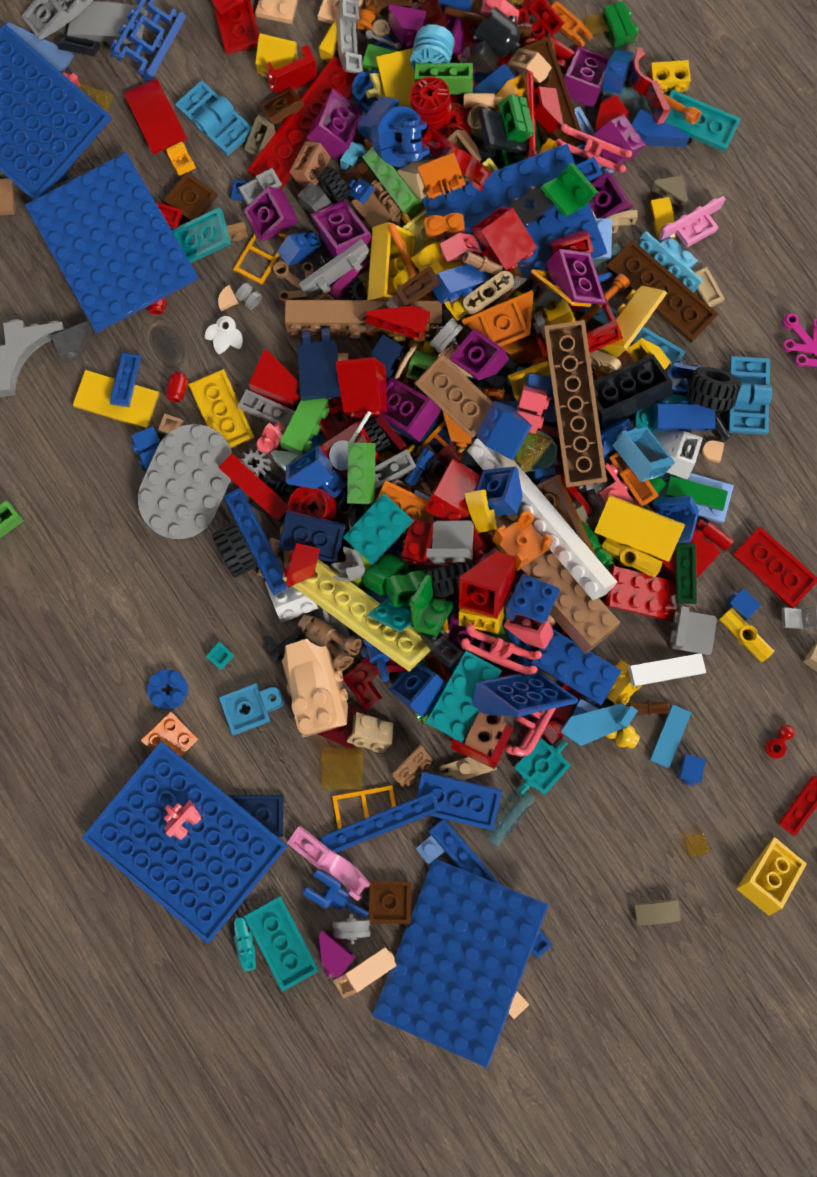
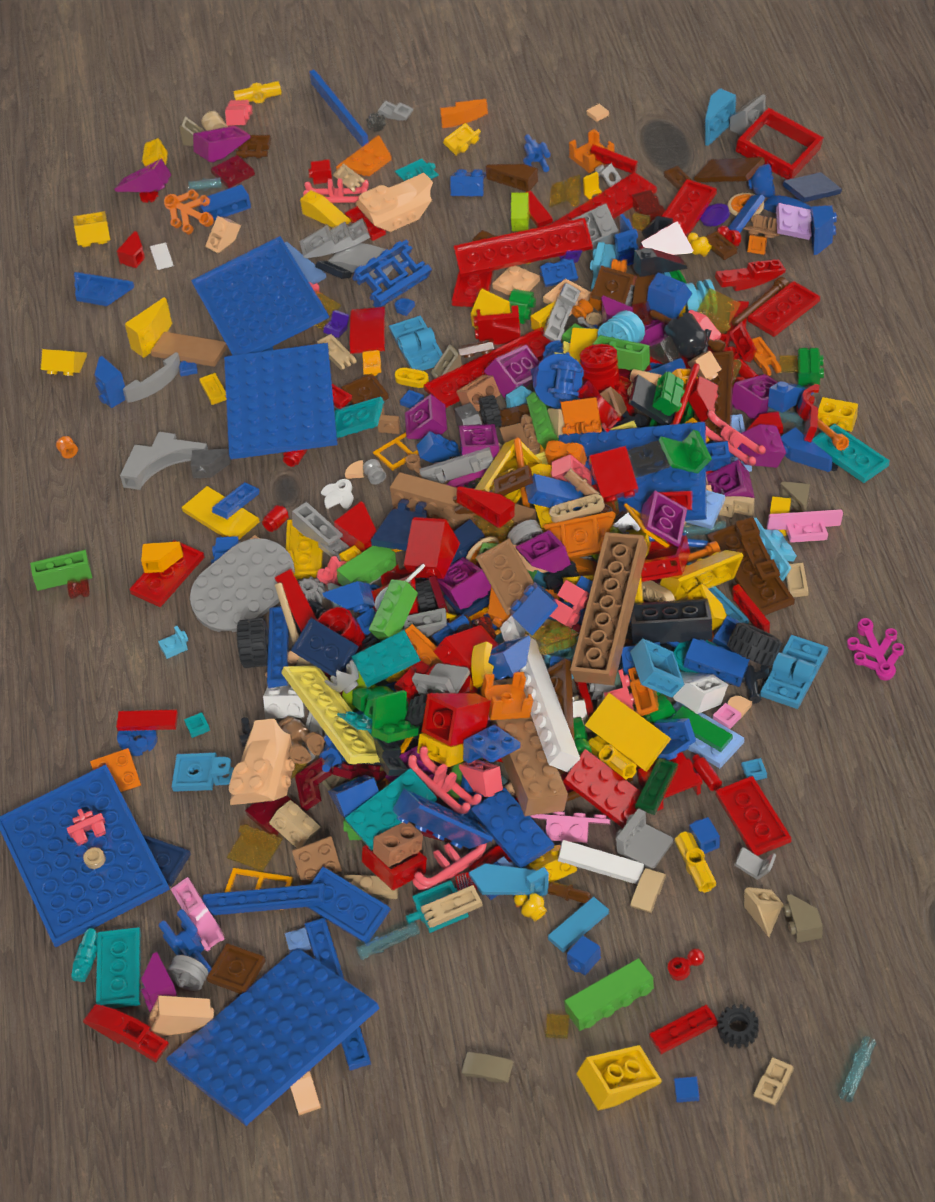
camera: 30 degrees right, 30 degrees down
(18, 541) = (78, 588): none -> clear red wheel
(29, 244) = (213, 388): none -> yellow plate
(85, 479) = (160, 556): none -> light orange slope
(99, 490) = (159, 586): none -> red plate
(120, 123) = (337, 324): none -> dark purple bracket
(139, 156) = (338, 352): none -> tan hinge
(148, 570) = (174, 644): none -> medium azure bracket
(171, 672) = (147, 720): none -> red tile
(176, 70) = (404, 306): none -> blue tile
(203, 845) = (94, 858): none -> tan tile
(228, 390) = (314, 525): none -> light grey slope
(229, 161) = (411, 377): none -> yellow plate
(253, 506) = (287, 612): none -> tan bar
(256, 187) = (437, 391): light grey slope -> none
(281, 413) = (349, 554): none -> yellow tile
(298, 31) = (525, 302): none -> green brick
(302, 564) = (302, 663): red slope -> none
(323, 1007) = (127, 1030): none -> red slope
(360, 190) = (510, 418): blue tile -> none
(558, 768) = (451, 906): none -> tan hinge
(625, 638) = (570, 828): none -> bright pink bracket
(664, 273) = (755, 549): none -> reddish brown slope
(683, 340) = (750, 609): none -> red tile
(709, 467) = (727, 716): none -> bright pink plate
(717, 679) = (647, 890): none -> tan slope
(730, 799) = (609, 995): none -> bright green brick
(754, 515) = (754, 768): none -> dark azure tile

